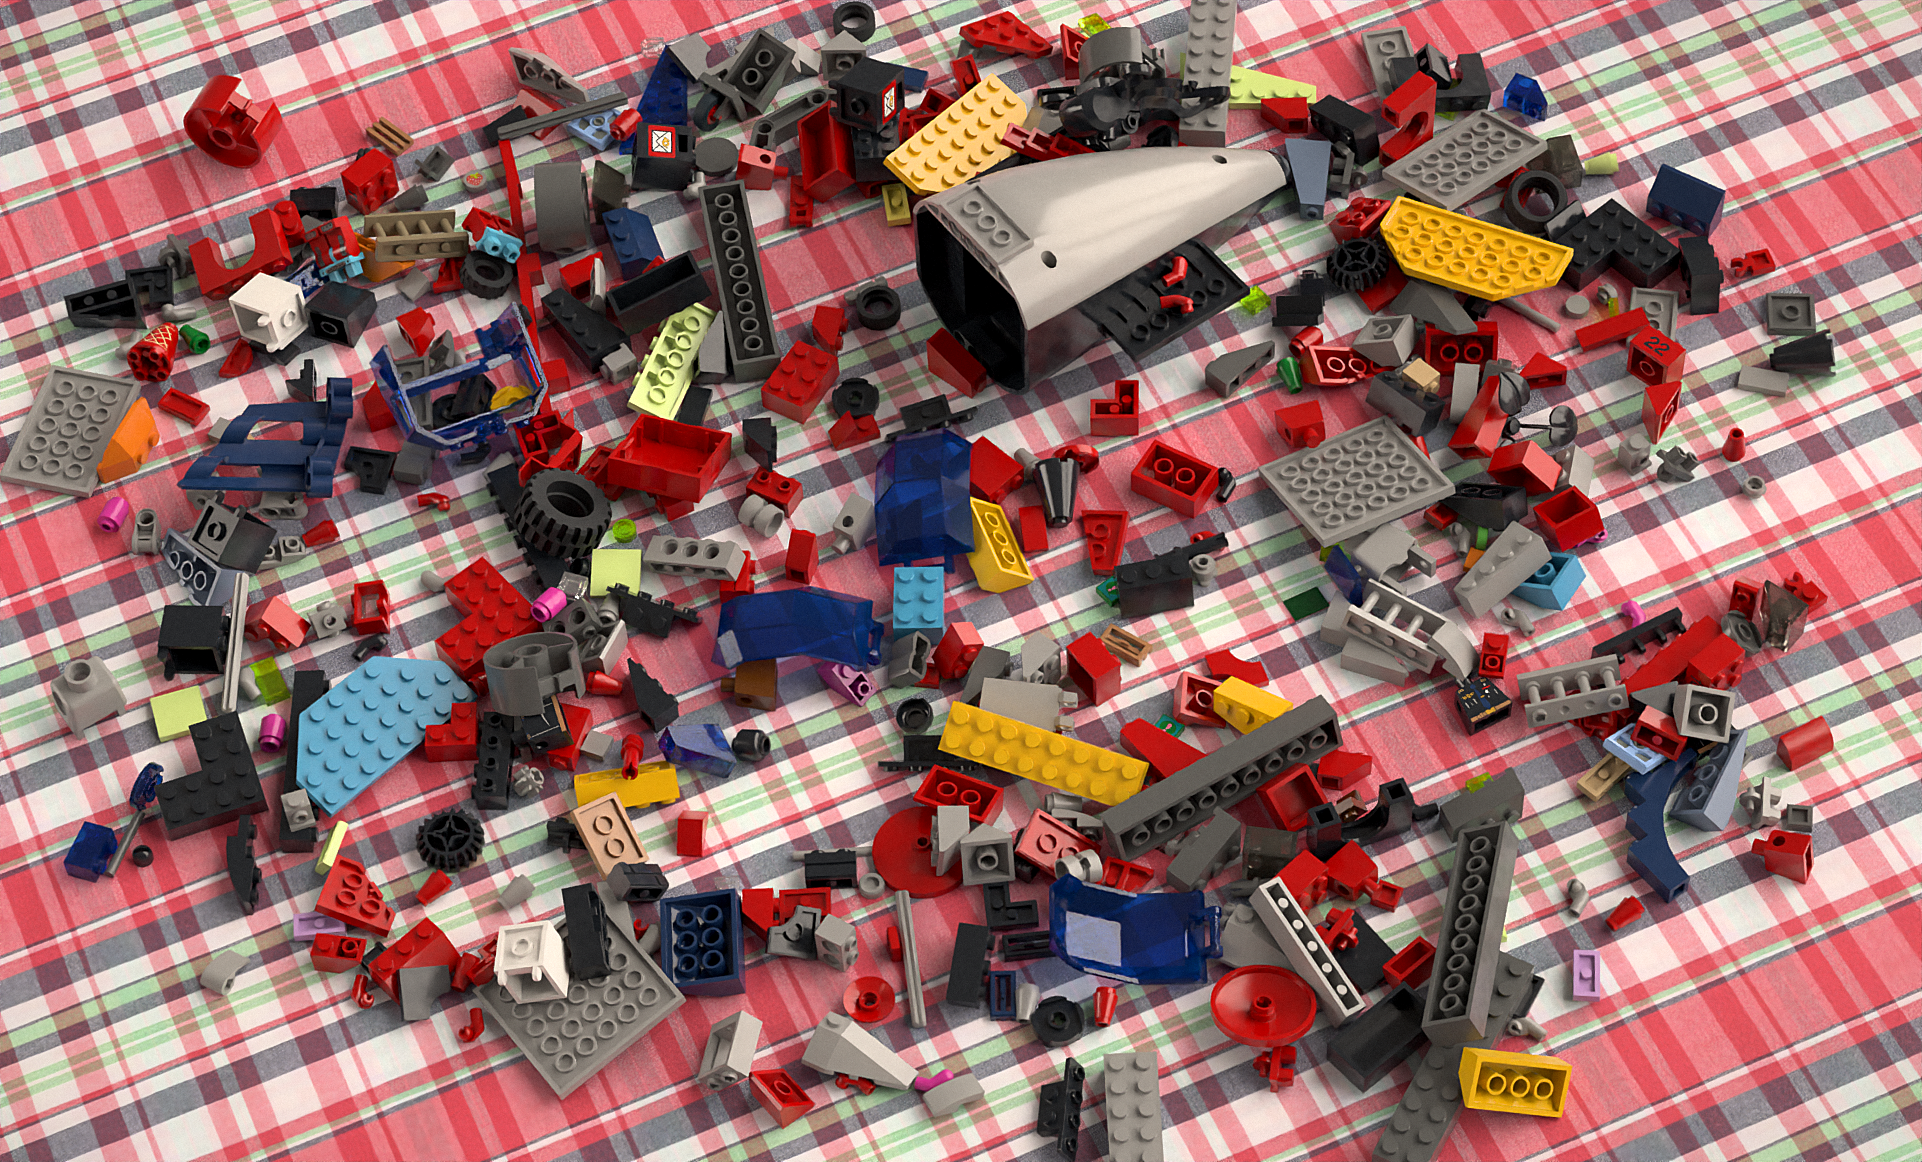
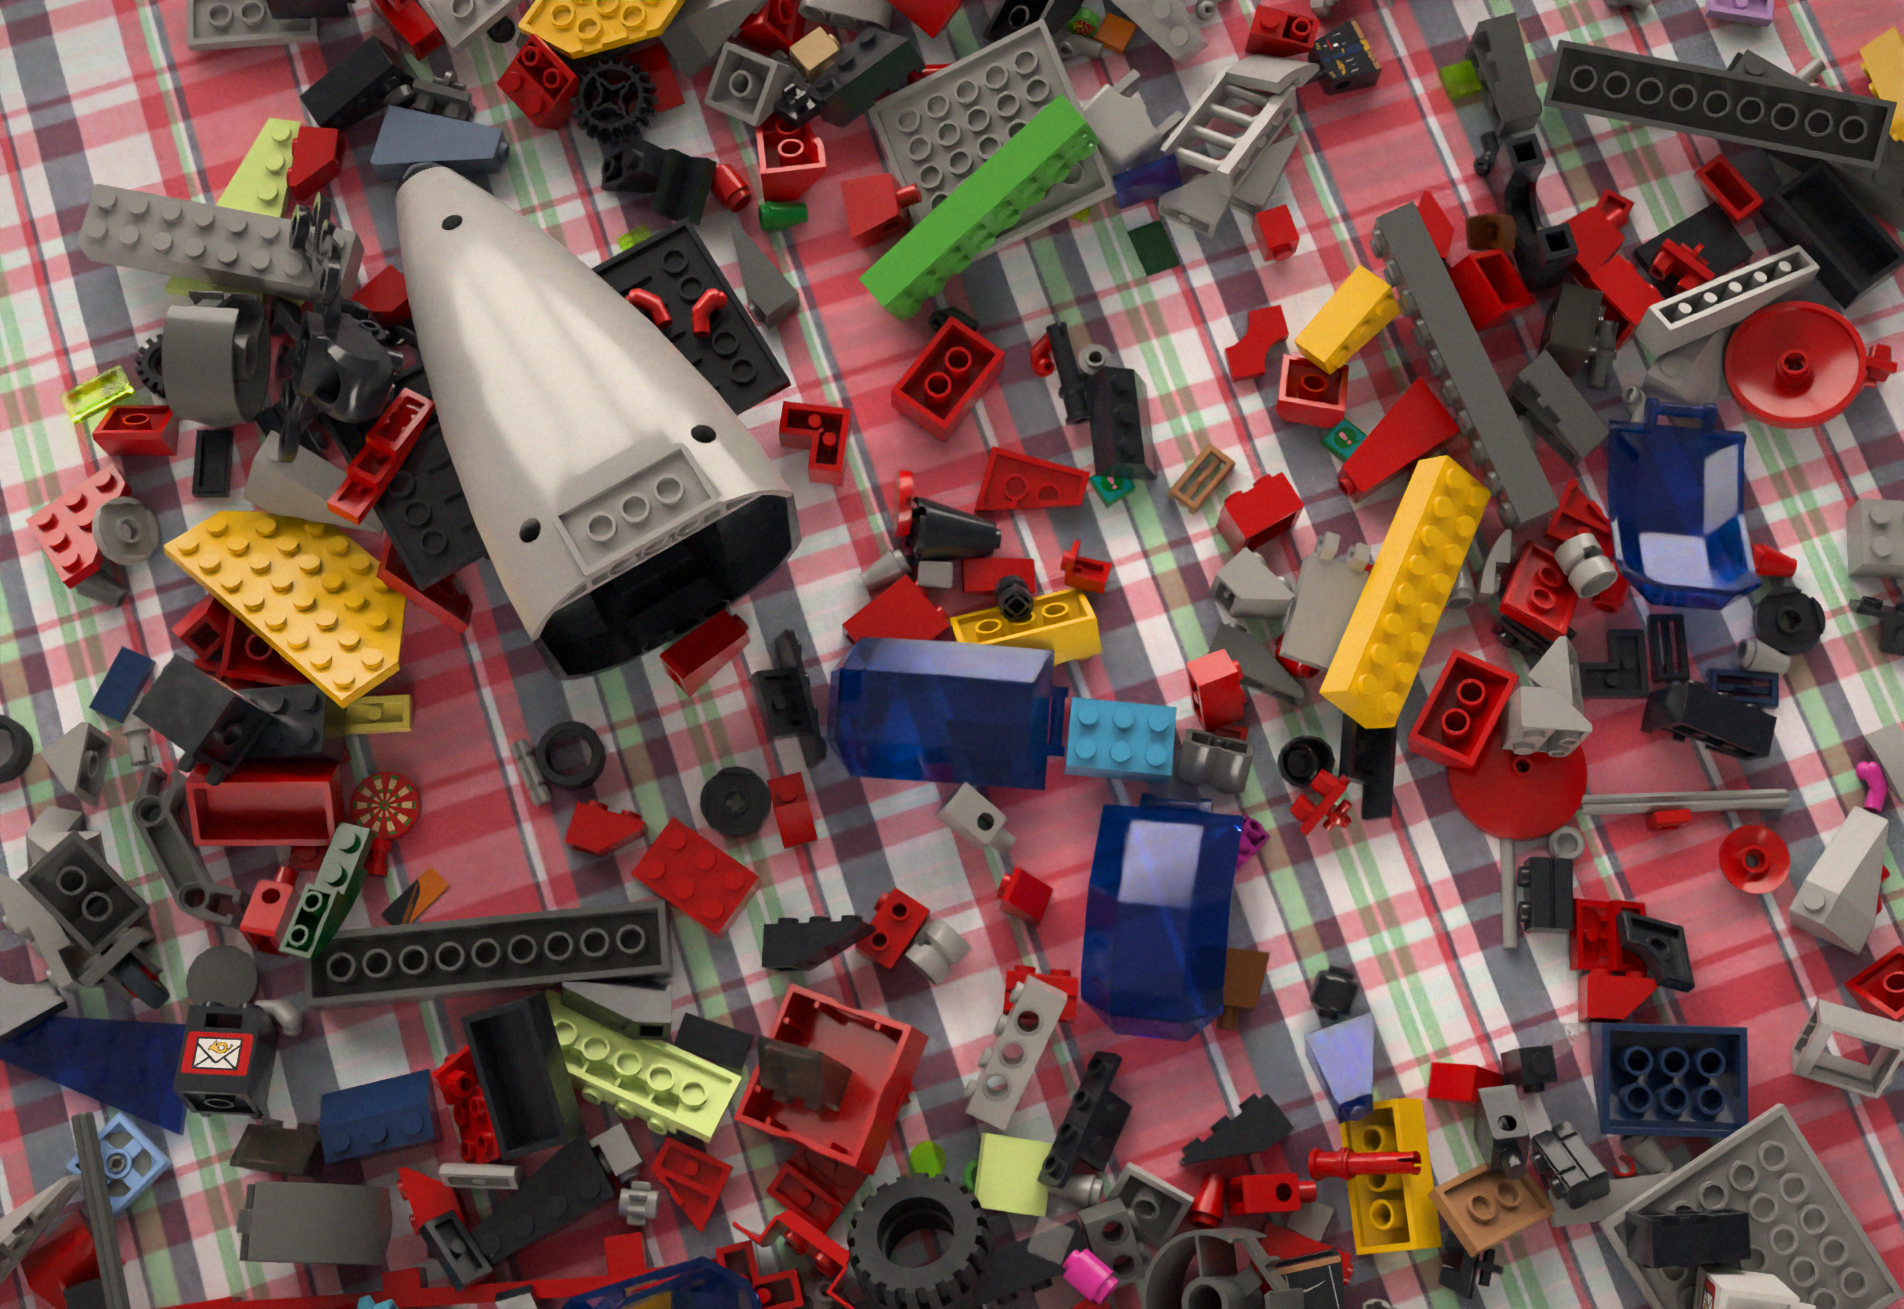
camera: 90 degrees left, 20 degrees up
(550, 278) = (455, 1250): none -> black tile
(581, 567) = (1007, 1227): black plate -> none
(587, 378) = (639, 1203): none -> light grey gear
(605, 405) = (691, 1179): none -> red wing
(609, 708) = (1257, 1194): none -> red torso
(625, 124) = (140, 1117): red brick -> none
(657, 835) = (1504, 1147): none -> black torso
(671, 441) = (801, 1075): none -> clear smoke slope
(704, 860) = (1529, 1068): none -> black brick
(761, 186) = (330, 899): none -> dark green slope
(777, 245) = (416, 898): none -> sticker
(836, 219) = (386, 805): none -> red tile
(836, 943) = (1680, 892): light grey brick -> none
(883, 723) = (1330, 789): none -> red hips
(965, 74) = (156, 589): red slope -> none
(994, 46) = (108, 533): none -> light grey tile
(1013, 530) = (1013, 598): none -> black wheel
(1026, 488) = (935, 574): none -> light grey slope
(1042, 574) = (1084, 572): none -> red bracket
(1296, 466) = (981, 209): none -> bright green brick
(1323, 668) = (1275, 233): none -> red brick
(1371, 366) = (796, 107): none -> black tile

